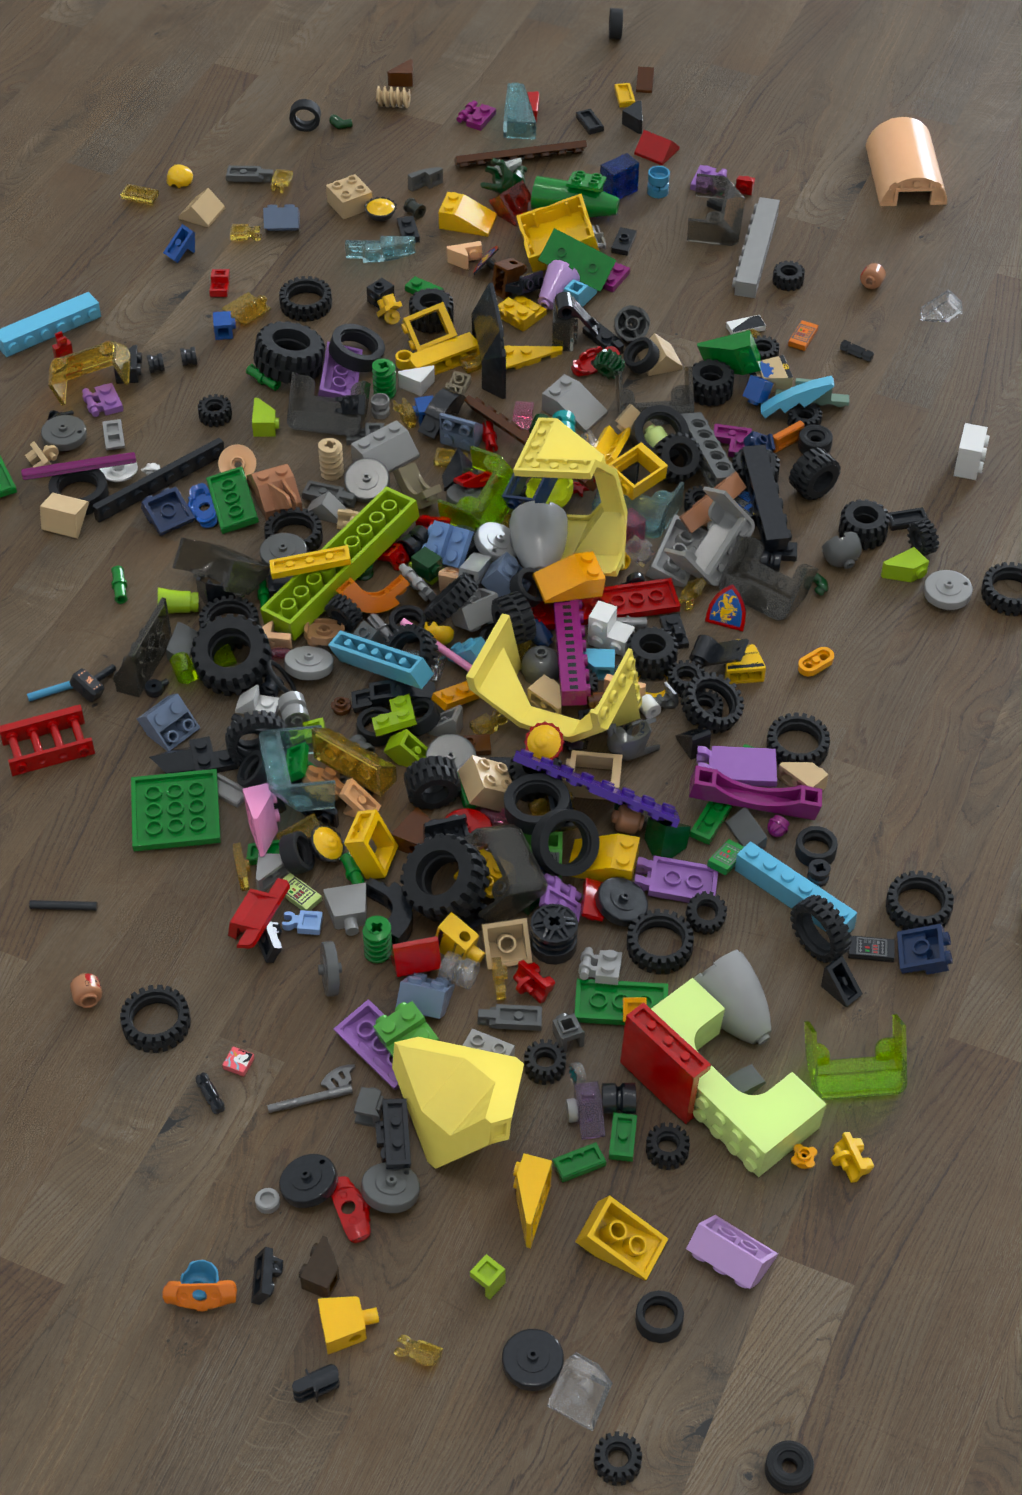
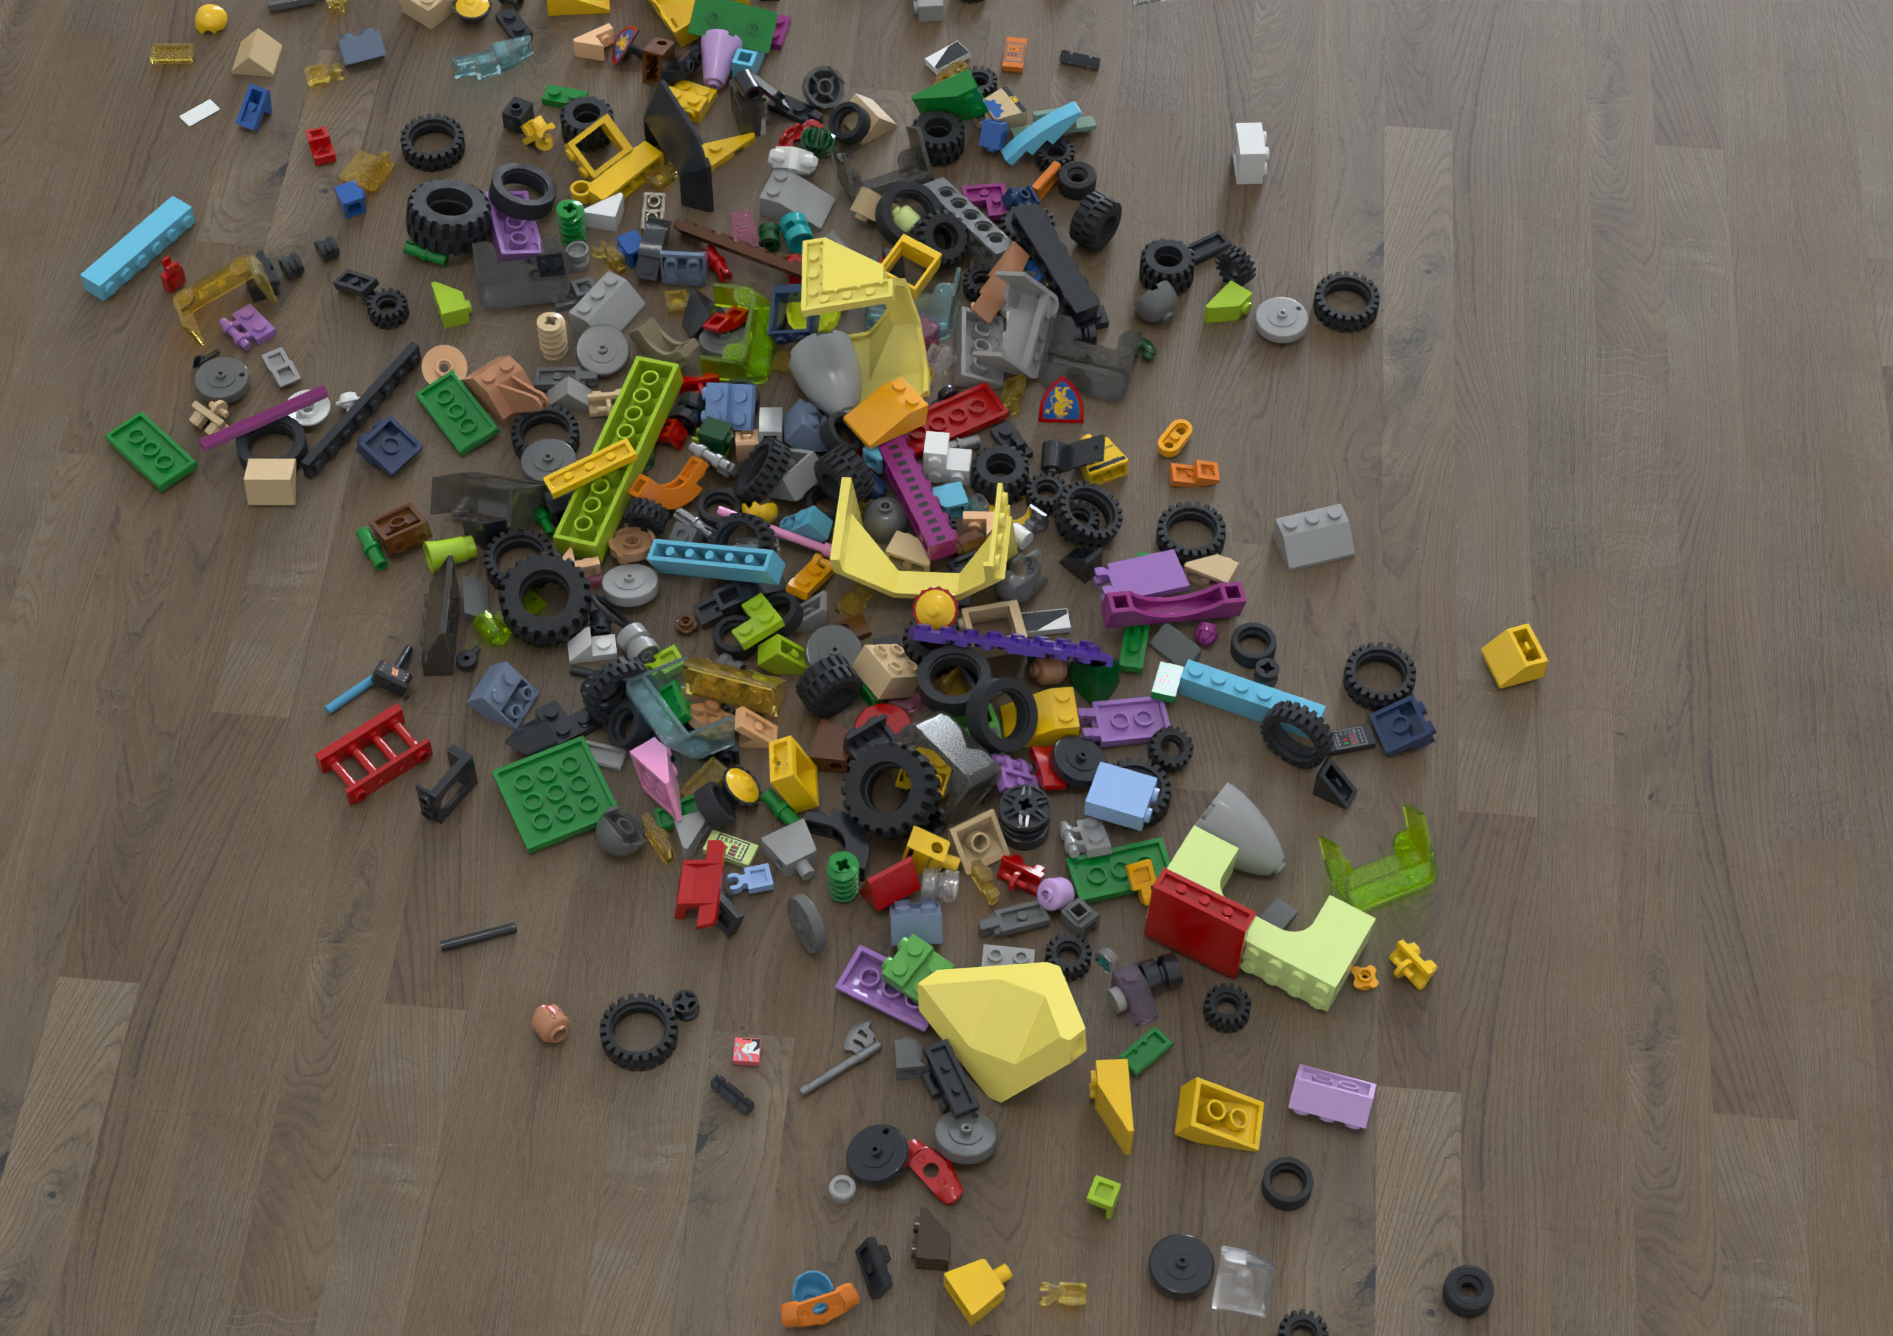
camera: 20 degrees left, 5 degrees up
(105, 765) = (461, 770): none -> black panel
(141, 240) = (199, 112): none -> white sticker
(147, 575) = (401, 529): none -> reddish brown plate
(198, 386) = (356, 283): none -> black hinge
(198, 1006) = (684, 999): none -> black wheel
(199, 496) = (416, 419): blue piece -> none
(210, 852) = (619, 832): none -> dark grey cylinder
(493, 540) = (777, 387): light grey wheel -> none
(547, 613) = (873, 459): none -> medium azure slope
(554, 1004) = (1055, 893): none -> lavender head
(582, 371) = (793, 160): none -> white piece
(611, 443) = (861, 238): yellow fence -> none
(622, 1137) = (1178, 1012): green plate -> none
(642, 781) = (1046, 622): none -> tile
(643, 938) = (1121, 796): none -> light blue brick
(821, 696) = (1196, 475): none -> orange slope
(906, 771) = (1314, 537): none -> light grey slope

